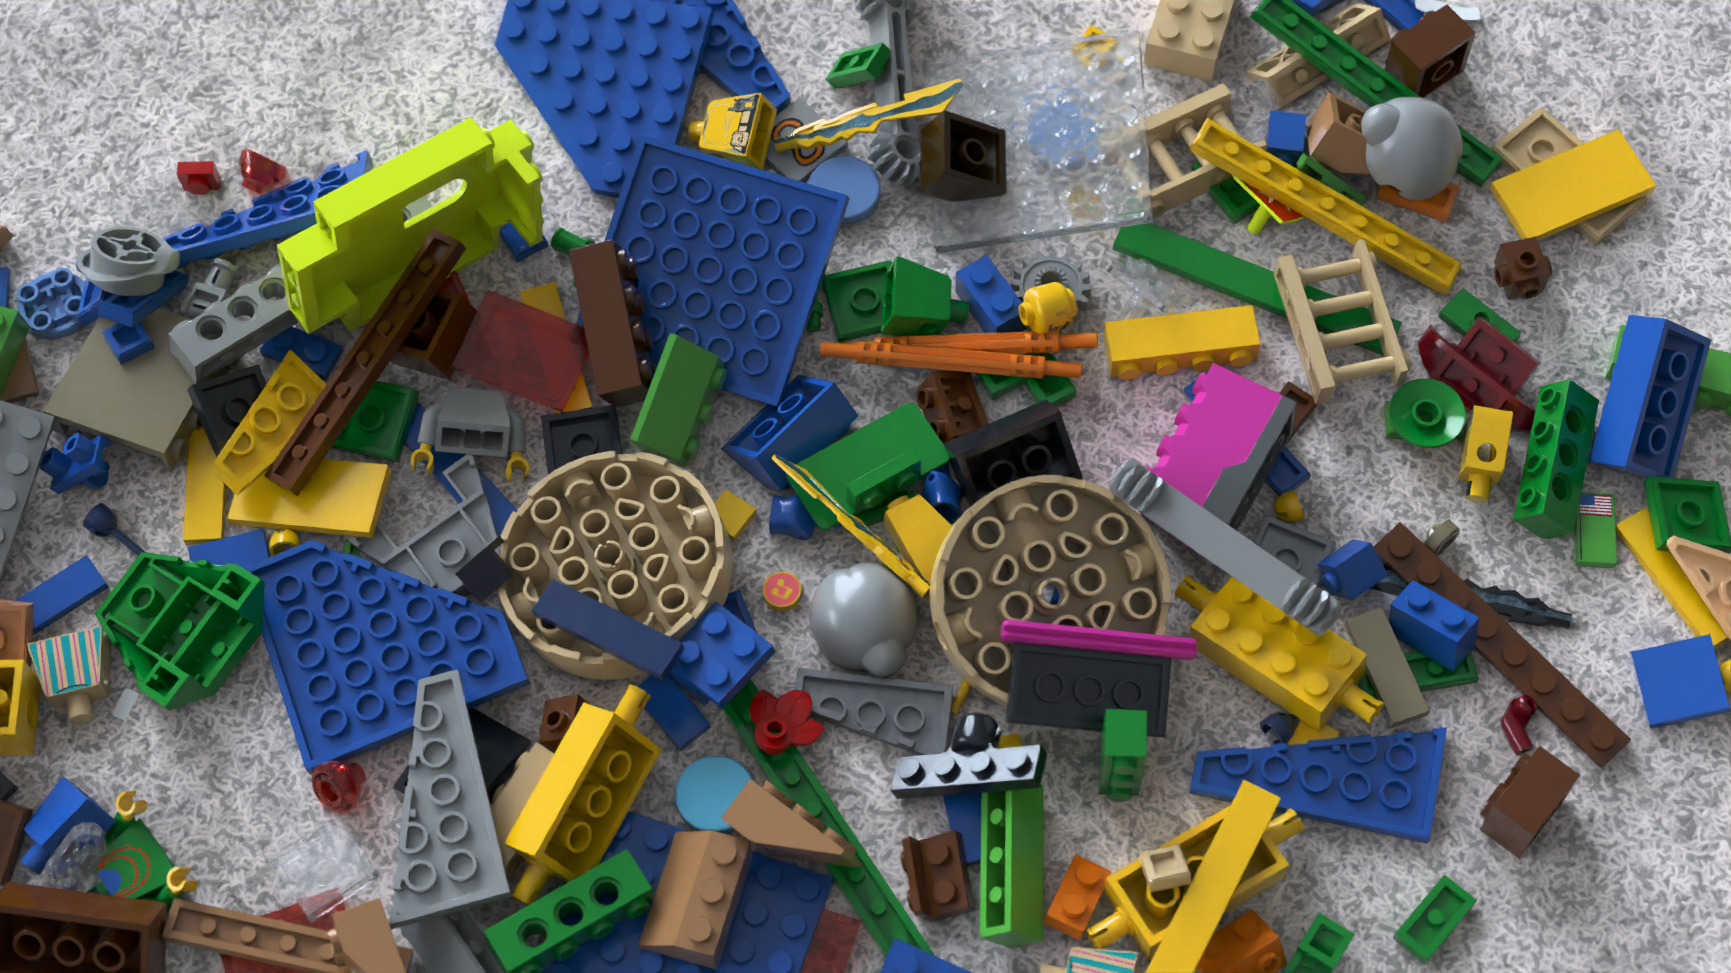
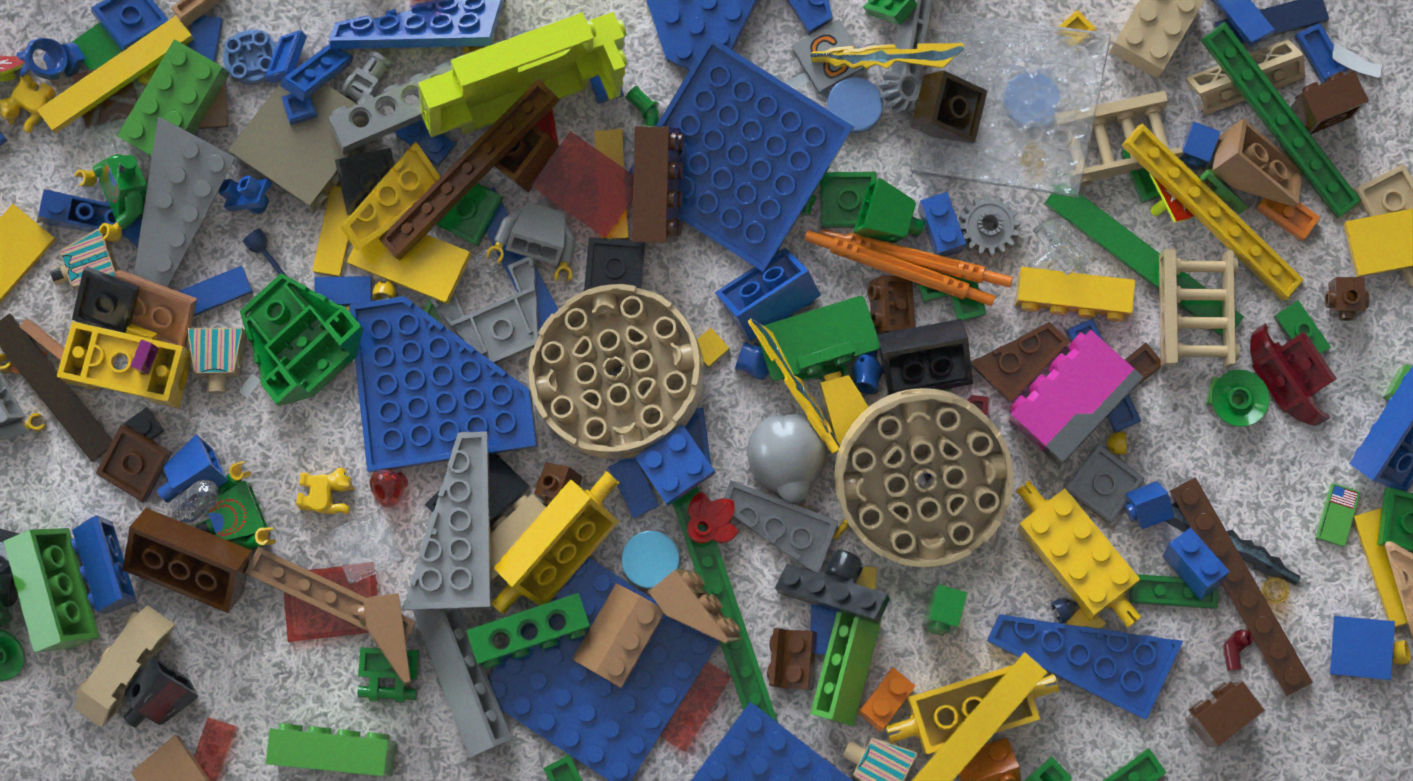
camera: 15 degrees right, 15 degrees up
(127, 261) = (309, 44): light grey piece -> none
(248, 813) = (321, 492): none -> yellow animal
(485, 571) = (521, 357): black panel -> none
(608, 630) = (599, 428): dark blue tile -> none
(679, 401) = (691, 256): bright green slope -> none
(736, 129) = (784, 39): yellow torso -> none
(782, 591) = (733, 416): tile -> none
(1048, 308) = (981, 248): yellow head -> none
(1077, 686) = (932, 555): black tile -> none
(1098, 639) = (949, 523): dark pink axle -> none
(1134, 433) = (1017, 363): none -> reddish brown wing
(1165, 868) = (951, 702): tan tile -> none
(1225, 547) = (1058, 479): light grey arm -> none
(1387, 667) = (1153, 585): dark tan tile -> none
(1412, 146) = (1292, 183): light grey piece -> none
(1441, 536) = (1221, 494): dark tan tile -> none
(1484, 427) = (1273, 425): yellow torso -> none
(1552, 631) = (1281, 584): none -> clear yellow bush
(1556, 459) = (1325, 457): green brick -> none

